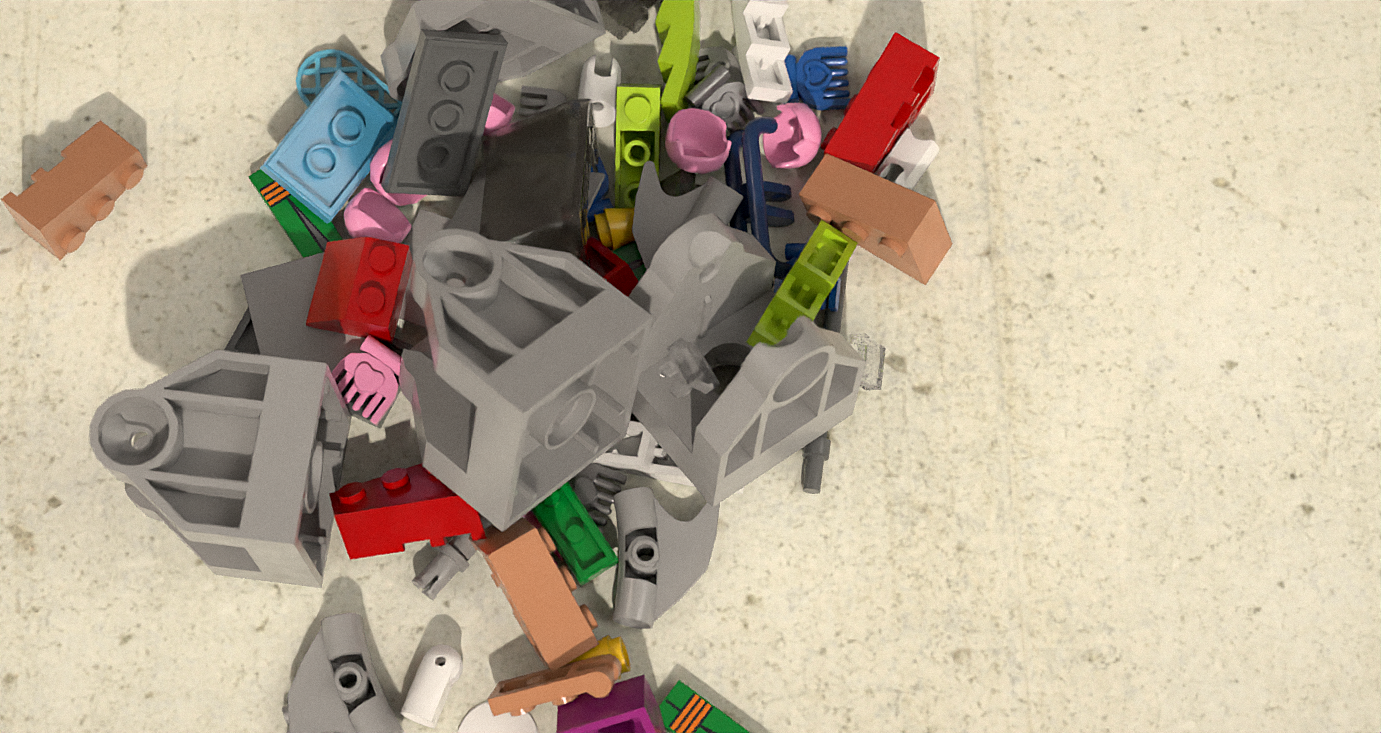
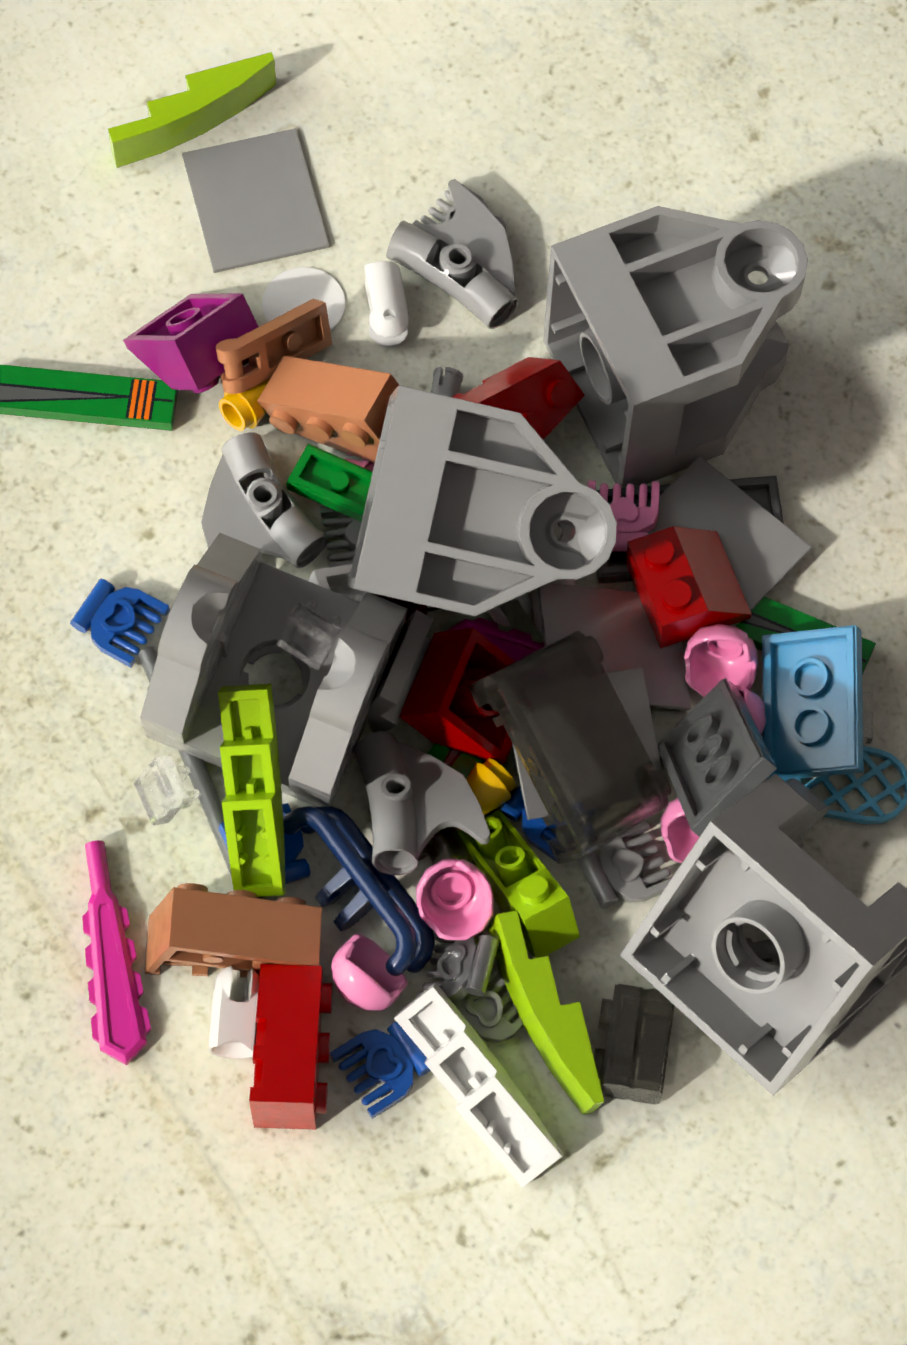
camera: 145 degrees right, 5 degrees down
(601, 91) = (594, 910): white piece -> none
(822, 534) = (113, 617): none -> blue piece
(980, 240) = (115, 989): none -> dark pink sword

